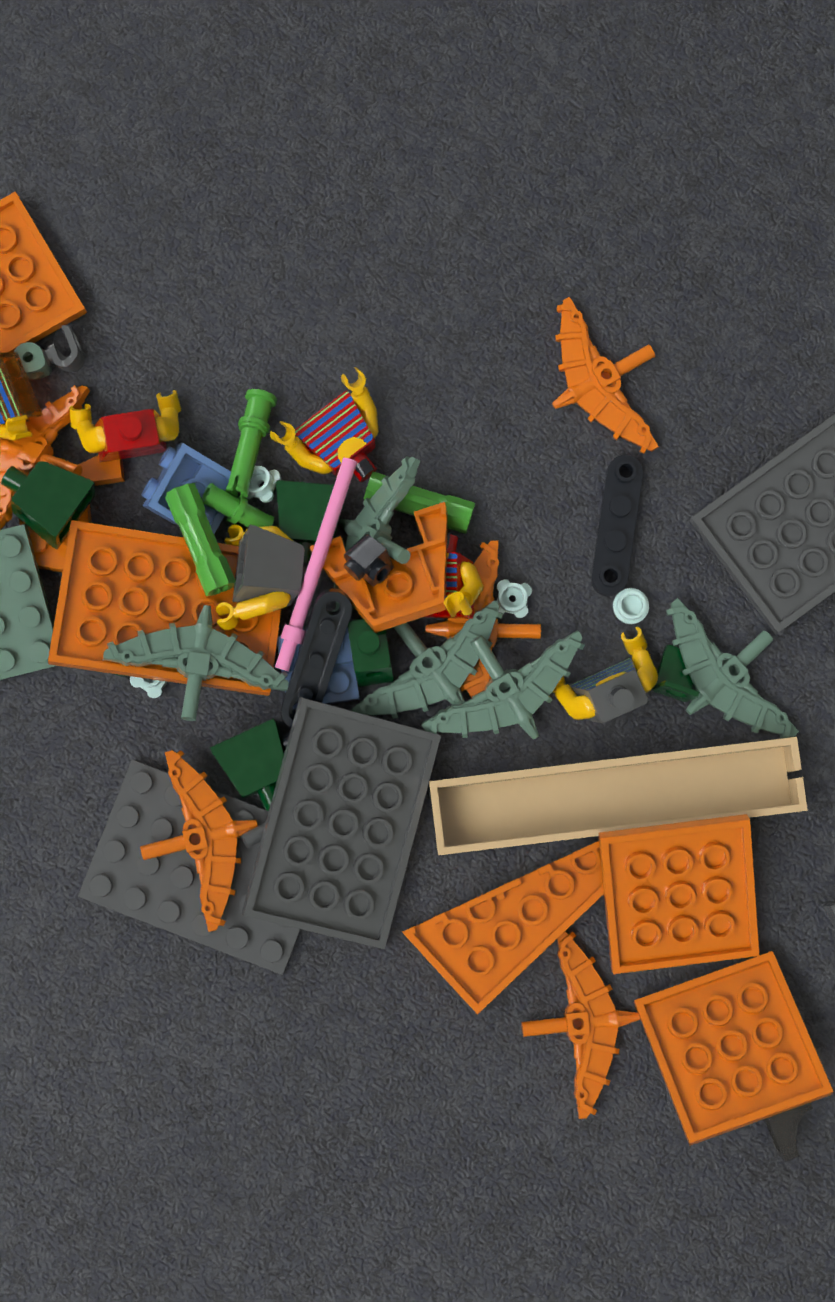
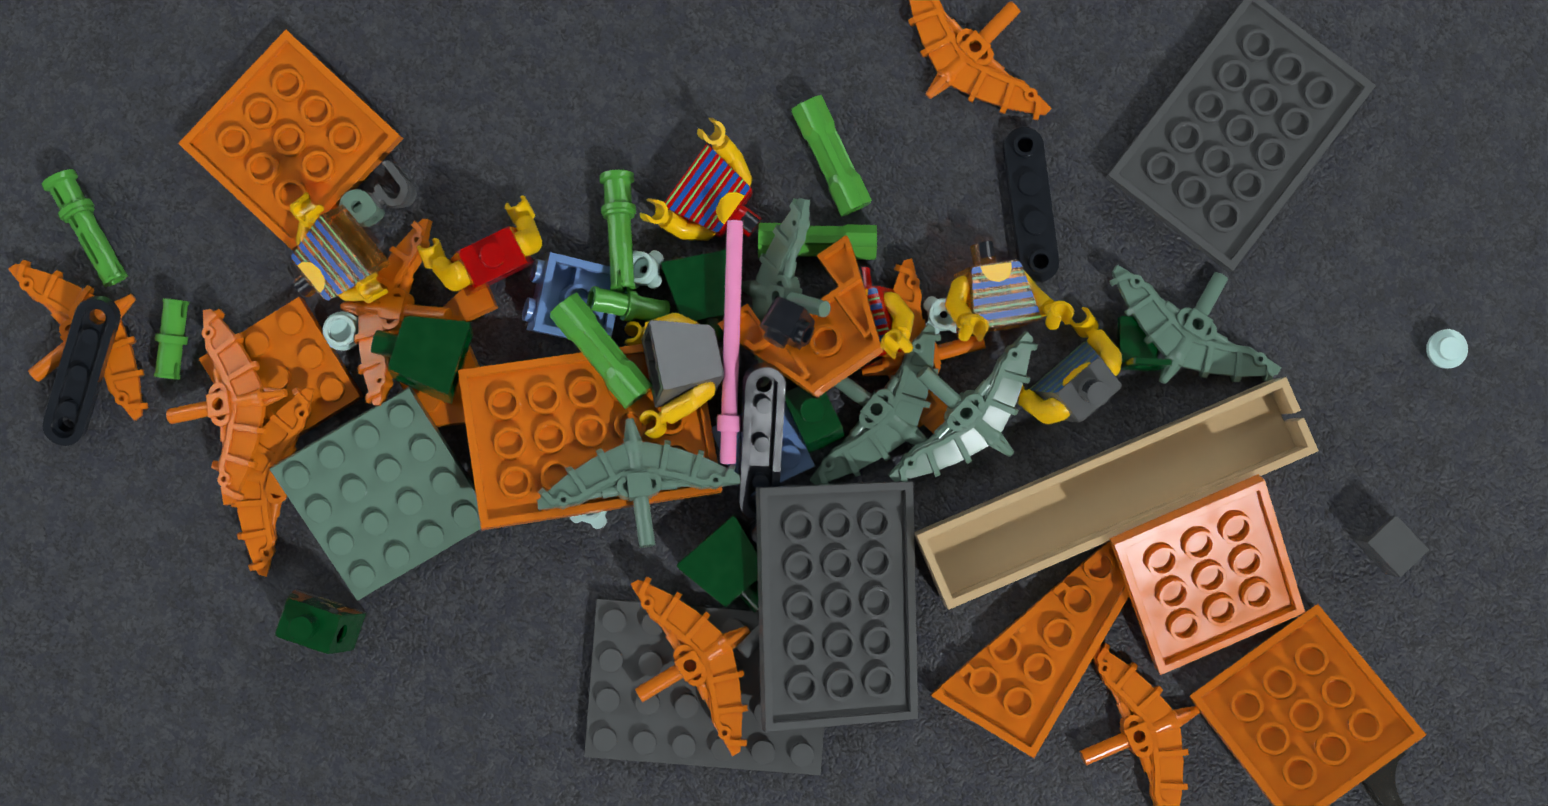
camera: 15 degrees left, 5 degrees up
(457, 454) = (820, 132): none -> bright green axle
(563, 595) = (999, 297): none -> torso
(630, 606) = (1070, 286): light aqua plate -> none

